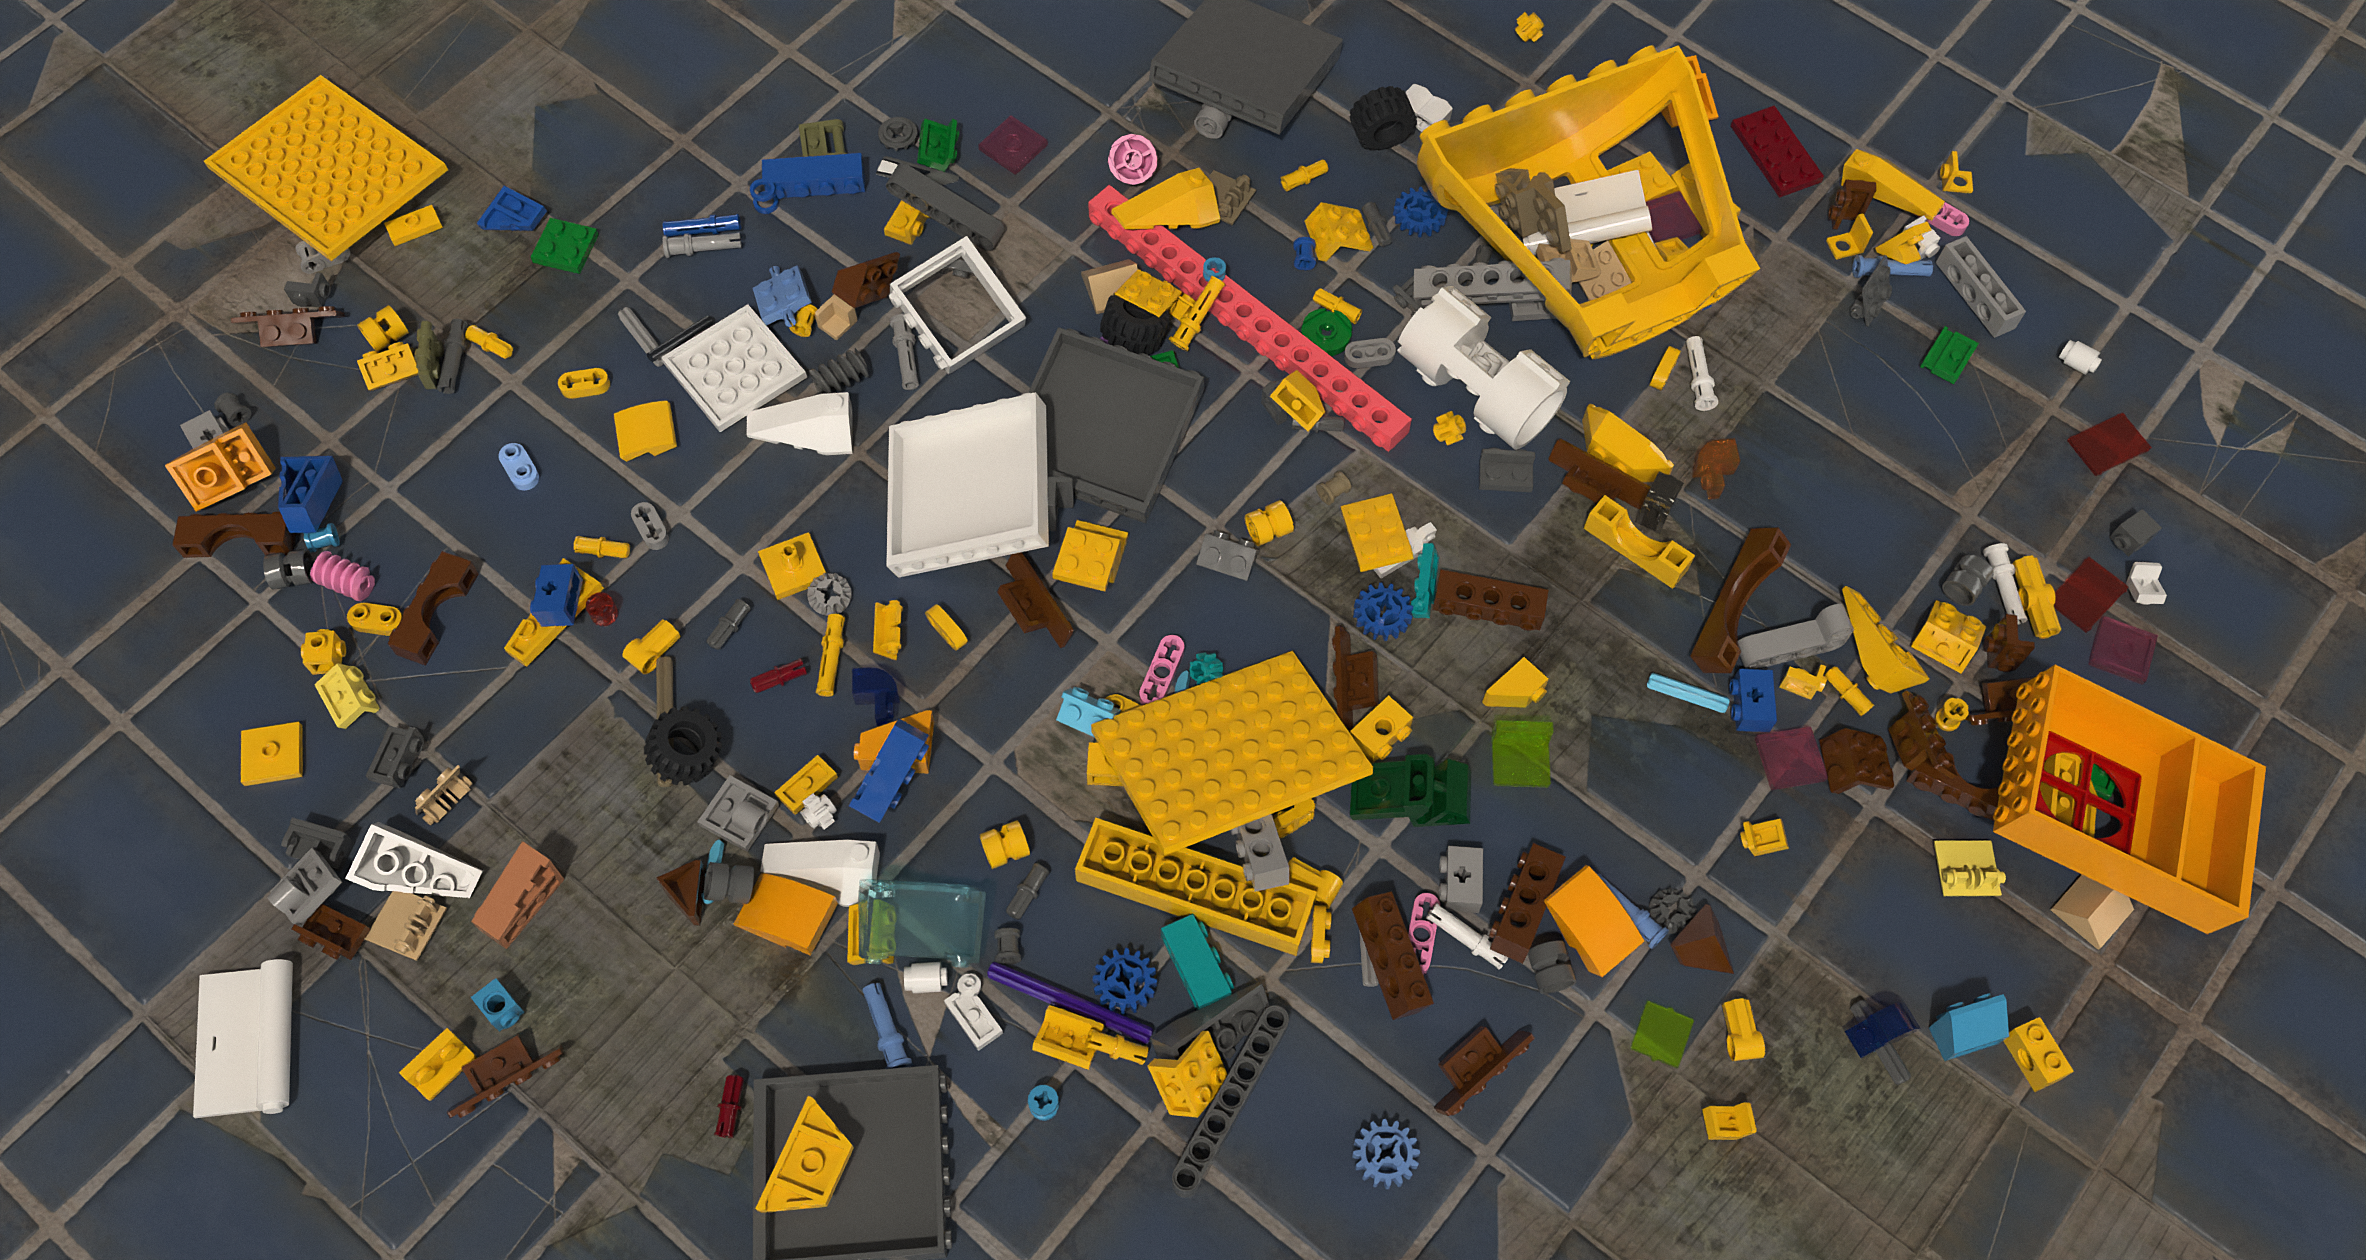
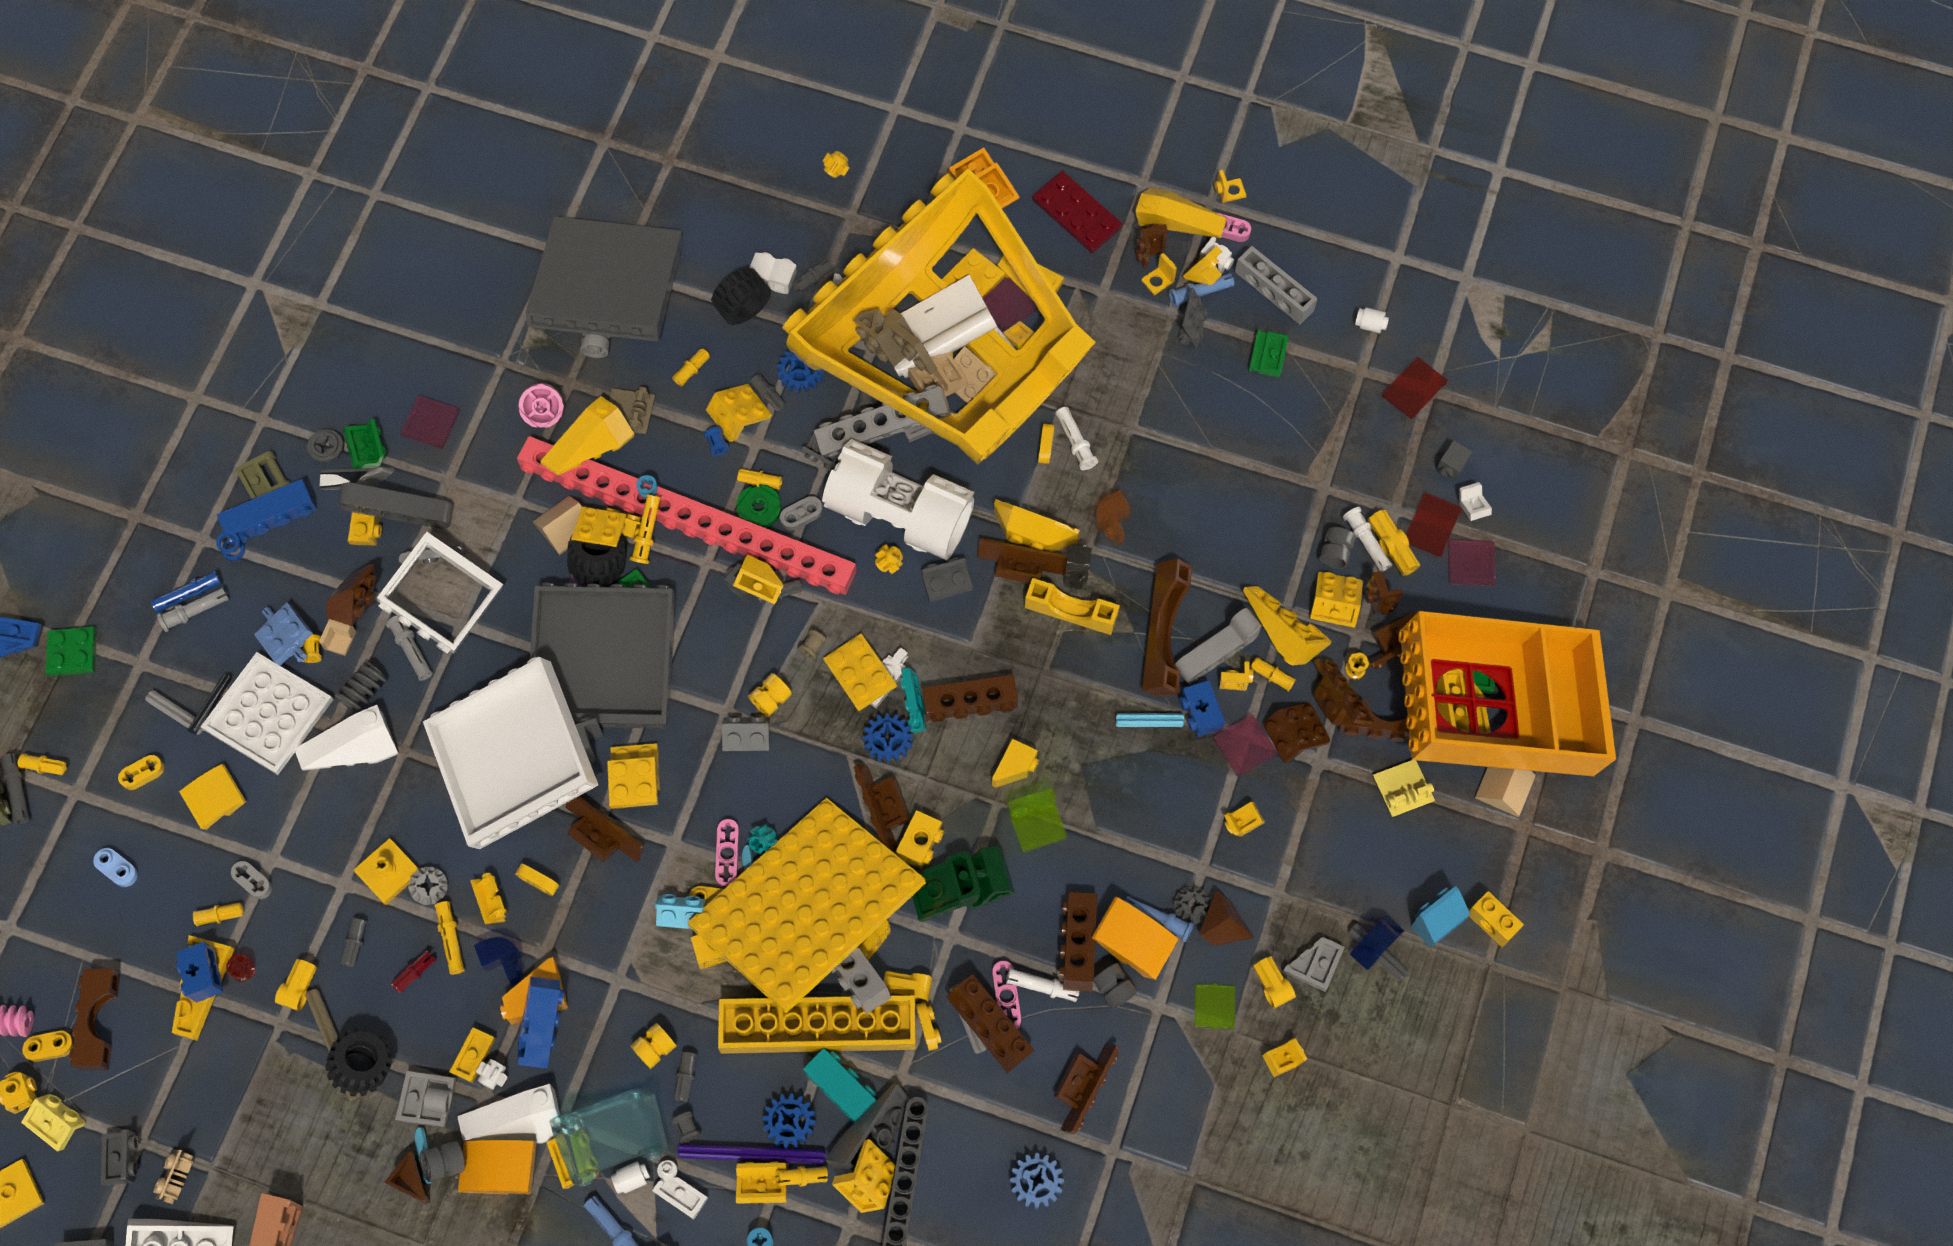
camera: 20 degrees left, 5 degrees up
(1468, 864) = (1024, 926): light grey brick -> none
(1801, 1028) = (1316, 964): none -> light grey wing

